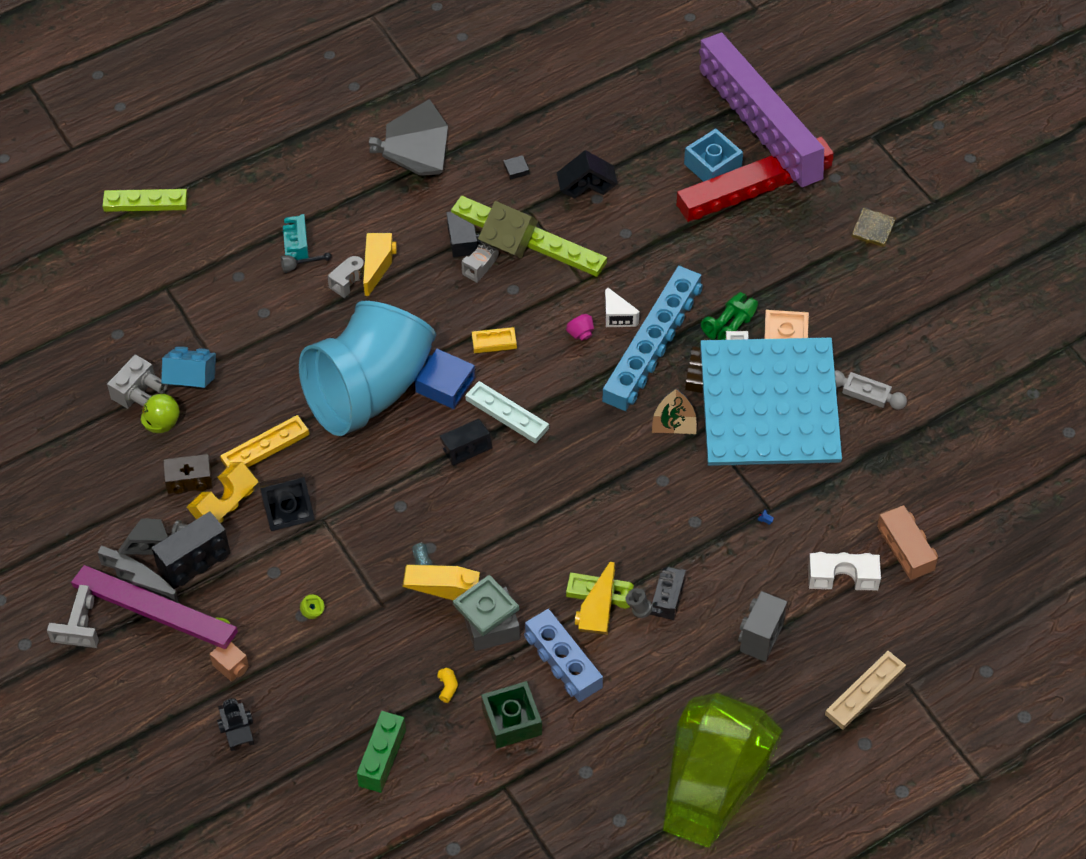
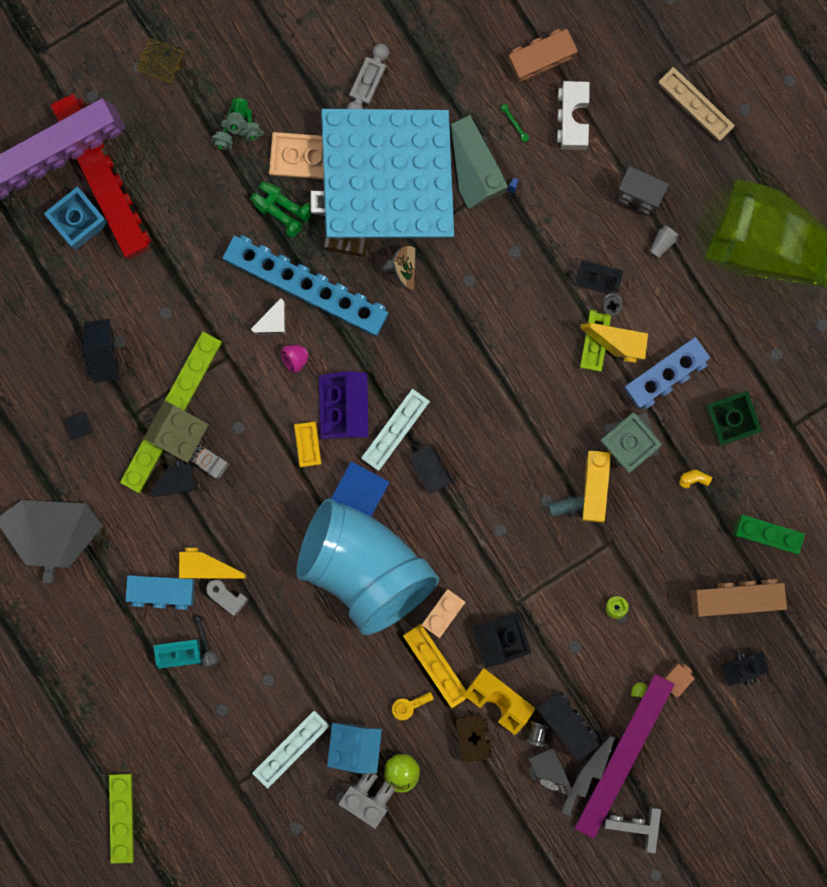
camera: 90 degrees left, 30 degrees up
(194, 325) = (290, 749): none -> light aqua plate
(224, 419) = (403, 708): none -> yellow plate
(312, 715) = (740, 599): none -> medium nougat brick
(321, 441) = (443, 613): none -> light nougat panel
(355, 224) = (160, 591): none -> dark azure brick
(532, 369) = (343, 405): none -> dark purple slope
(712, 656) = (664, 240): none -> light grey cone
(781, 486) = (476, 169): none -> sand green wedge
(812, 268) = (236, 122): none -> sand green plant
(819, 529) = (524, 137): none -> green hinge

